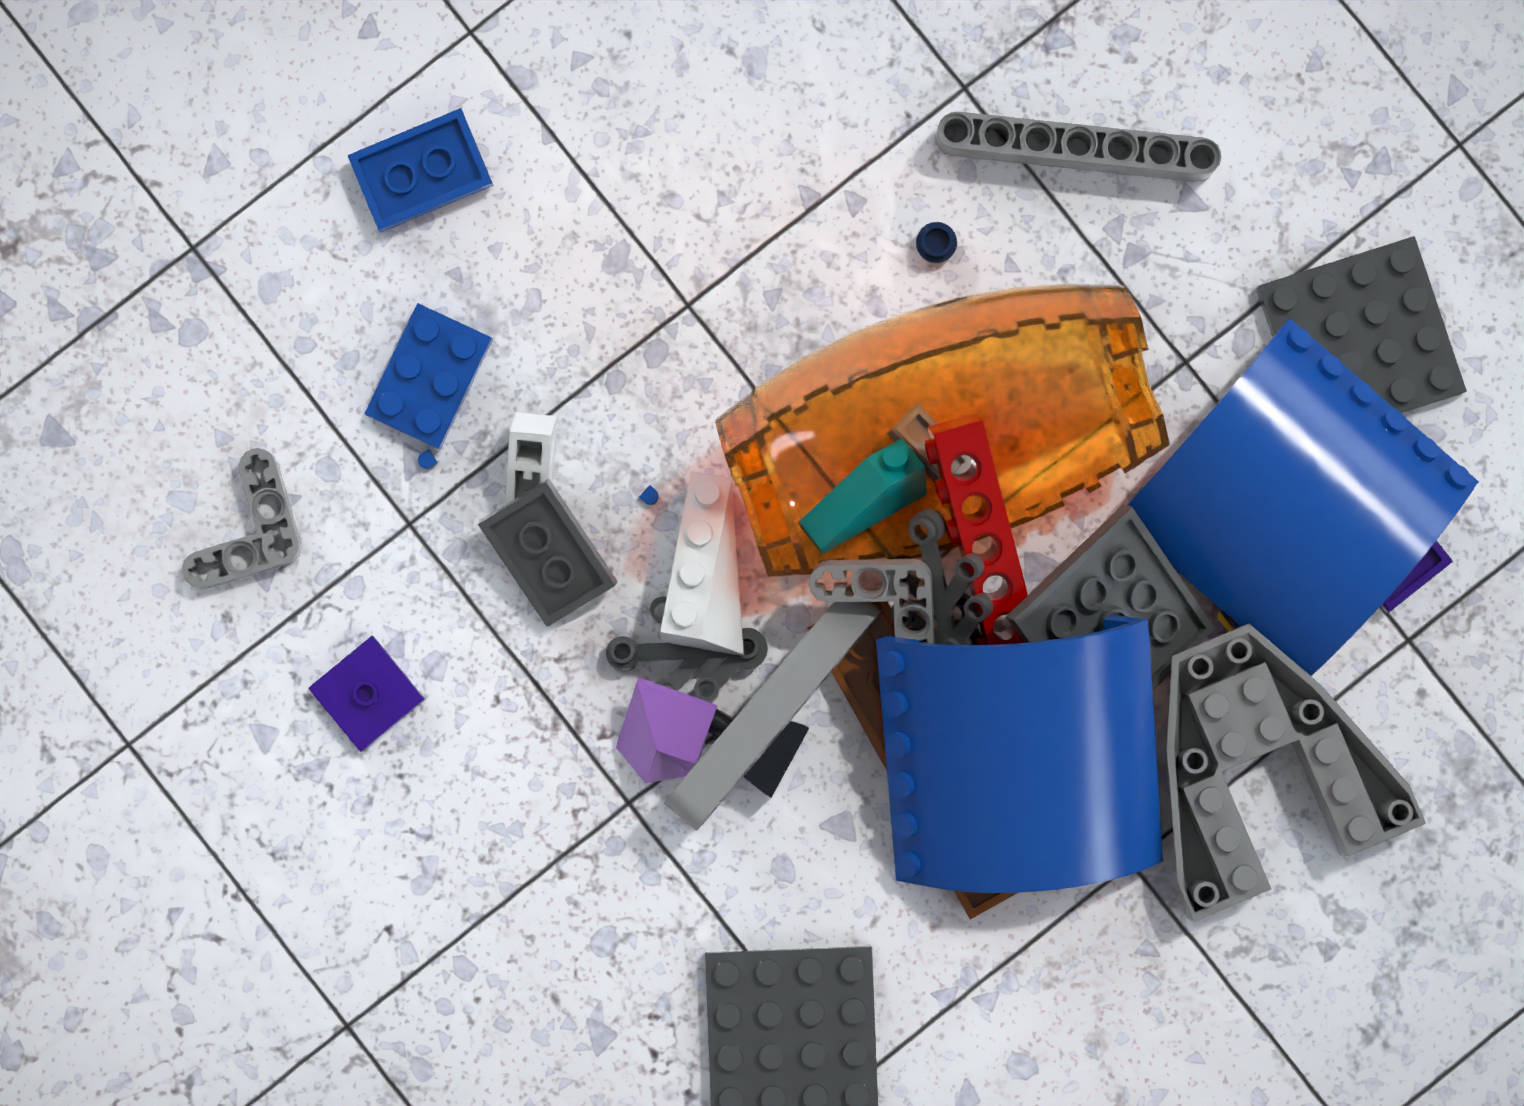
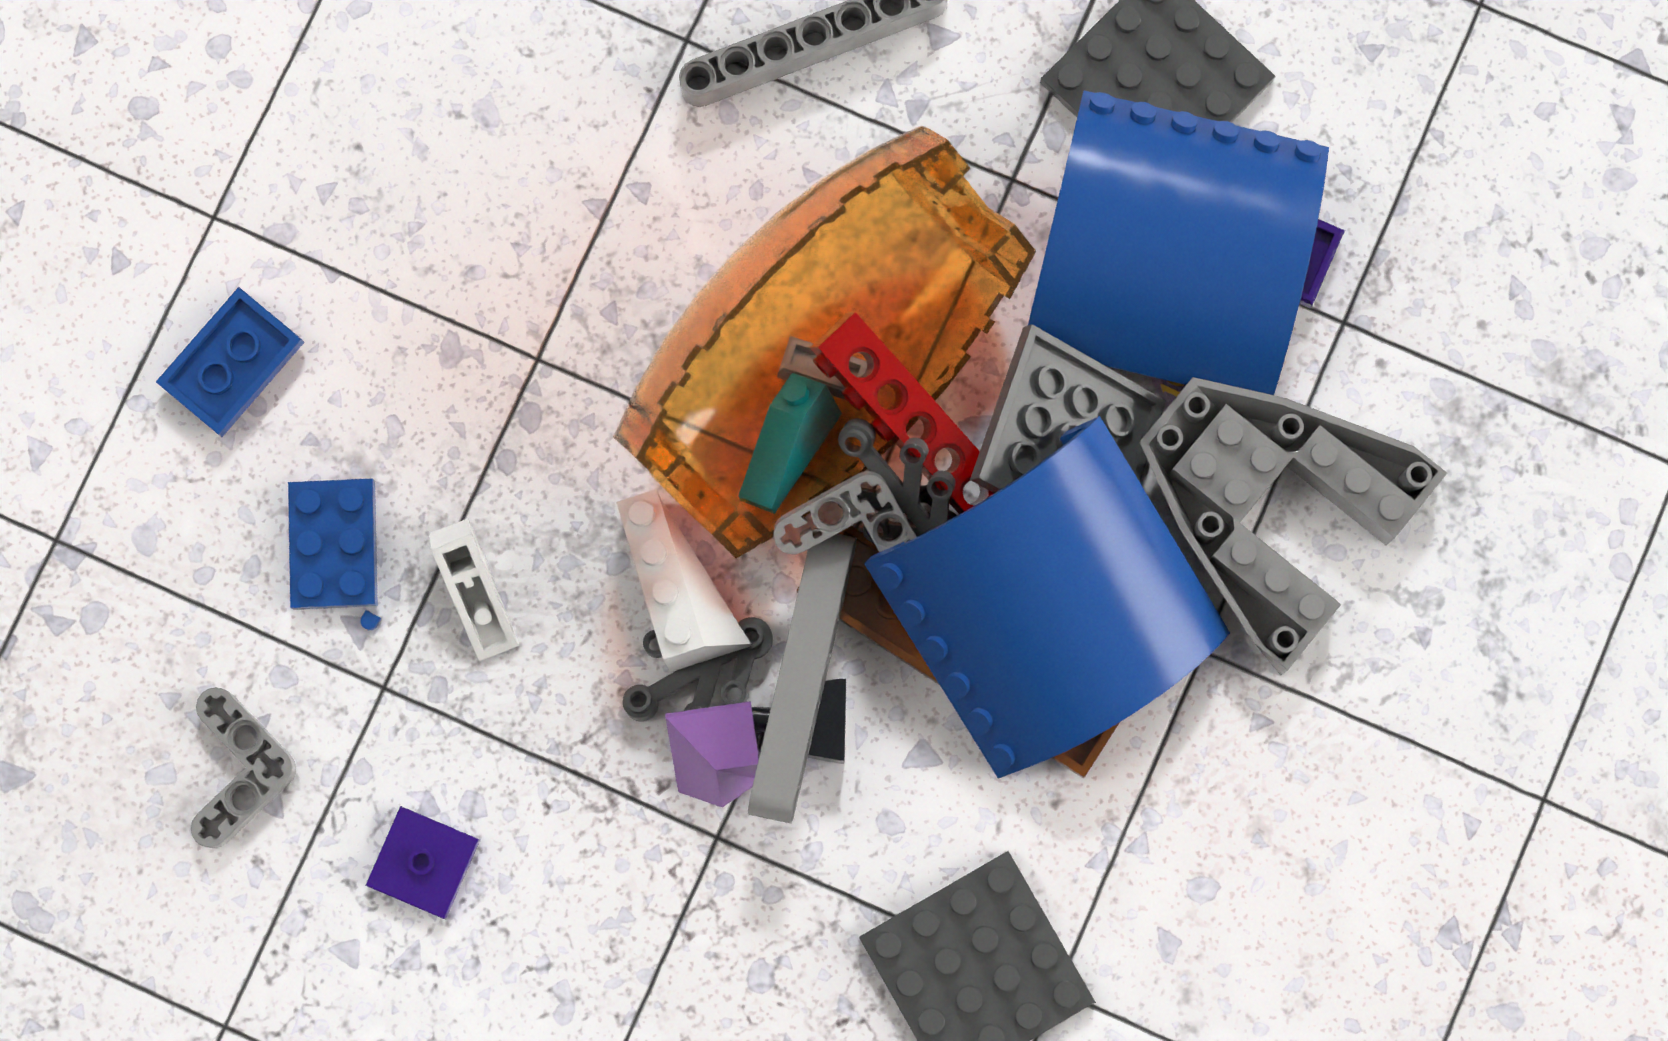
camera: 25 degrees left, 5 degrees down
(547, 552) = (523, 644): dark grey plate -> none
(649, 496) = (591, 547): blue piece -> none
(936, 242) = (732, 187): dark blue plate -> none

